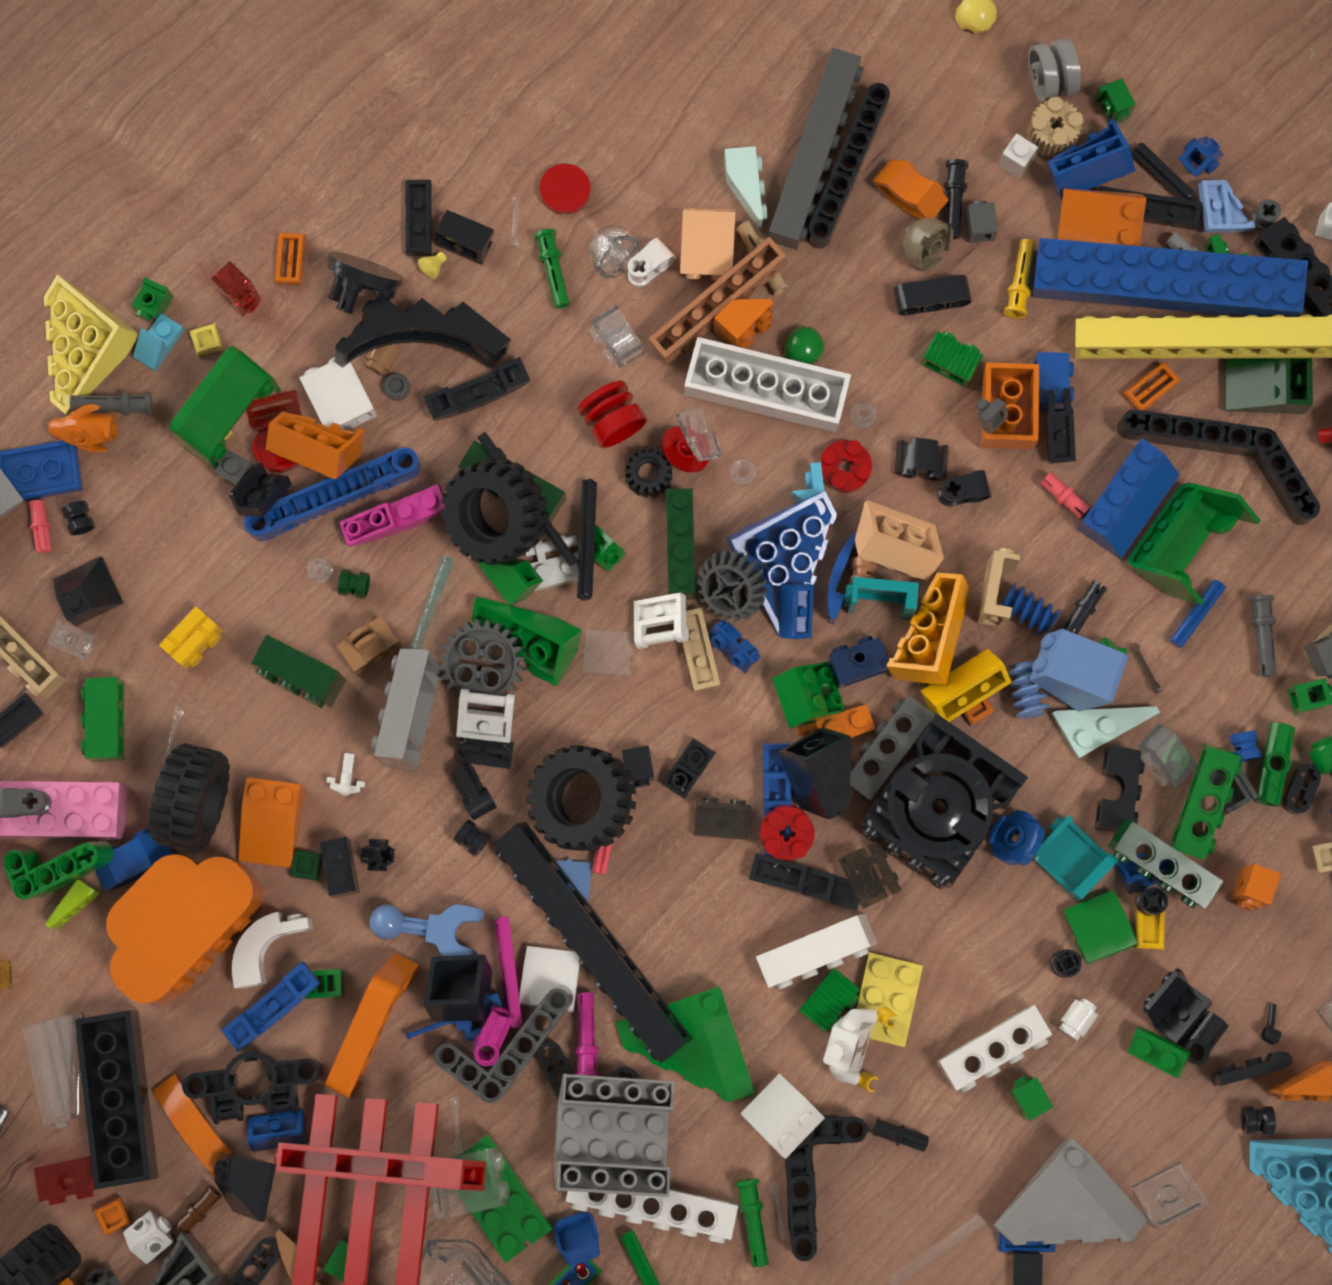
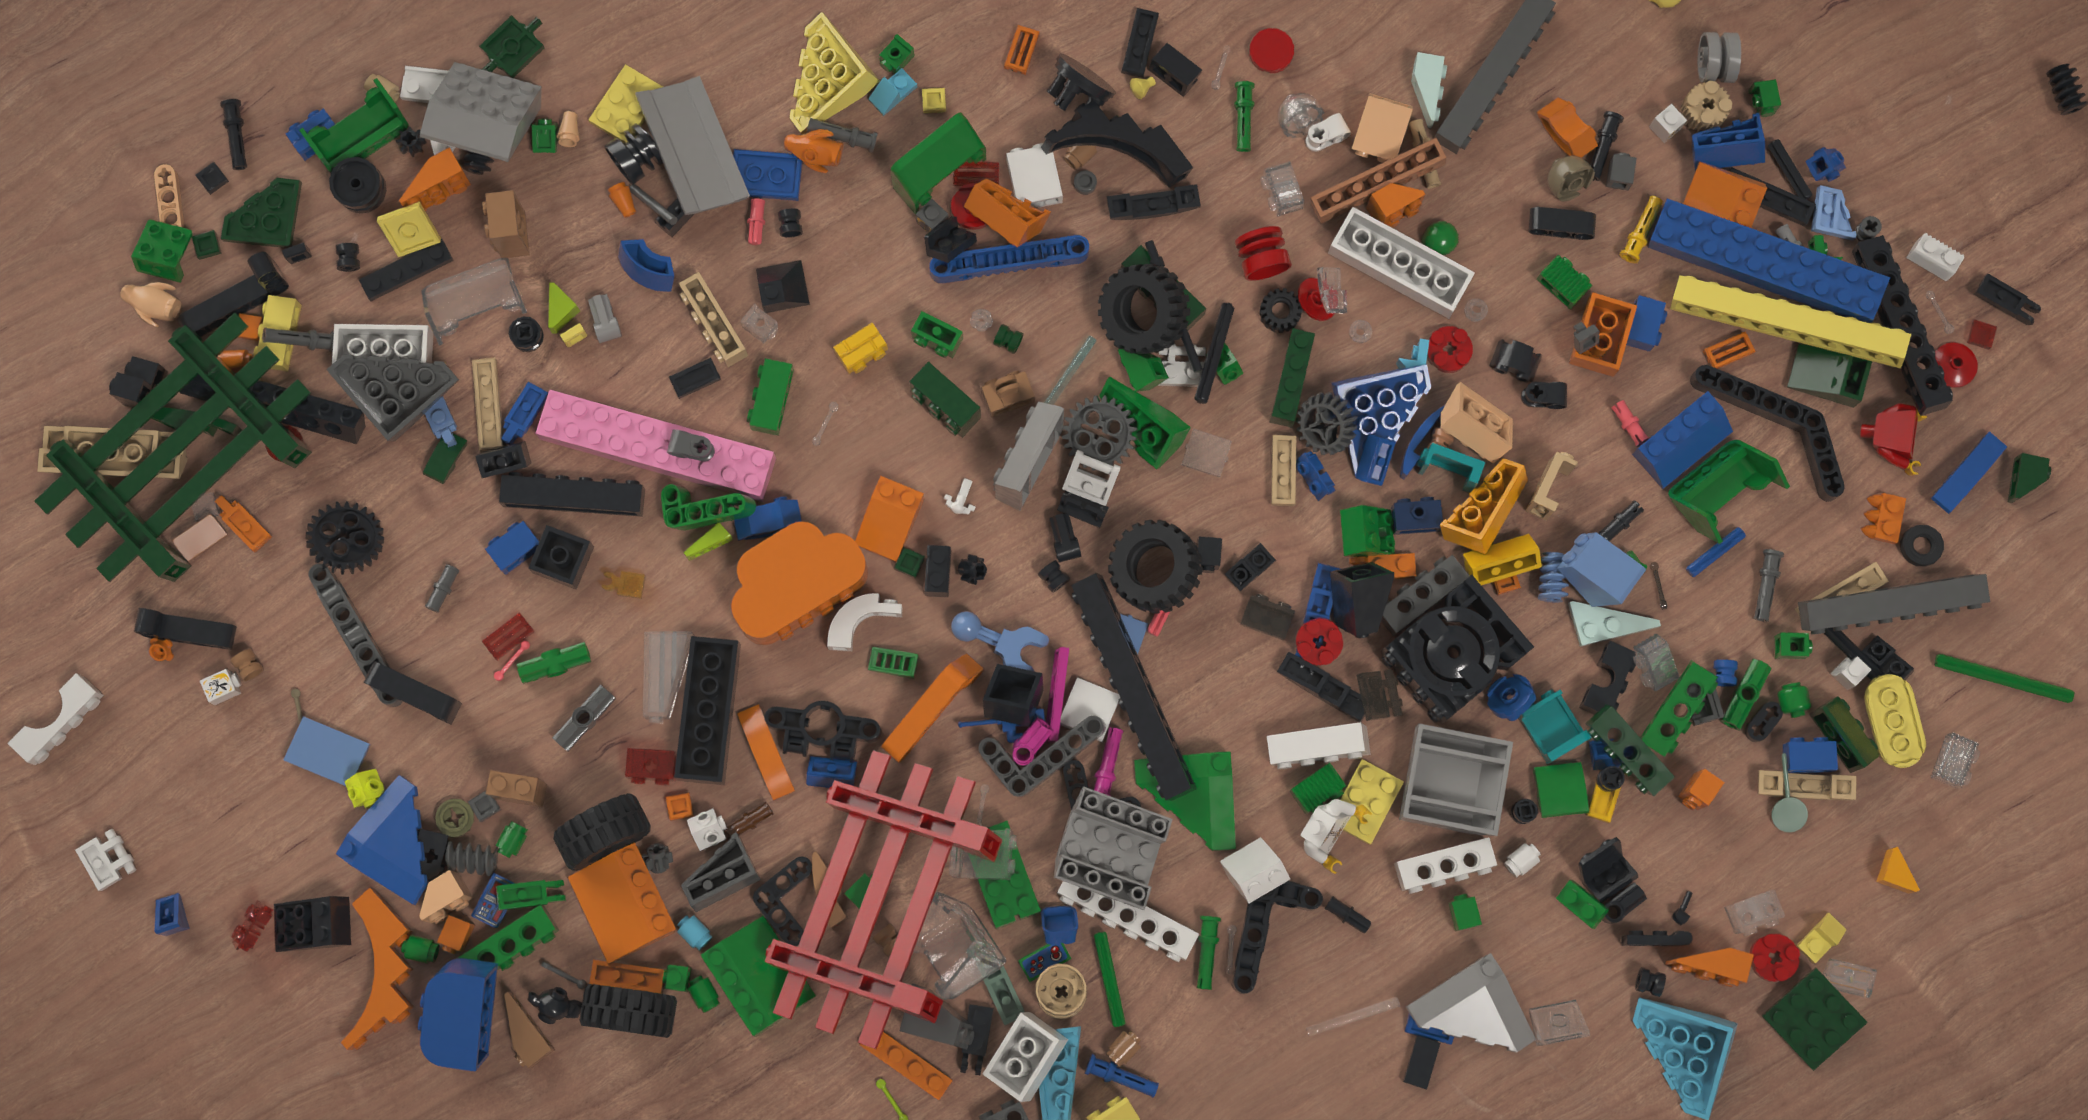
camera: 10 degrees right, 0 degrees up
(189, 798) = (830, 479): black tyre -> none
(236, 289) = (972, 64): clear red brick -> none
(245, 1184) = (797, 808): black slope -> none
(271, 1007) = (853, 671): blue slope -> none
(272, 600) = (937, 335): none -> green brick
(394, 517) = (1055, 292): dark pink slope -> none
(659, 612) = (1258, 430): white plate -> none
(849, 154) = (1524, 84): black beam -> none
(981, 950) = (1456, 780): none -> light grey slope
(1030, 610) = (1574, 511): blue piece -> none
(1060, 429) = (1640, 365): black hinge -> none

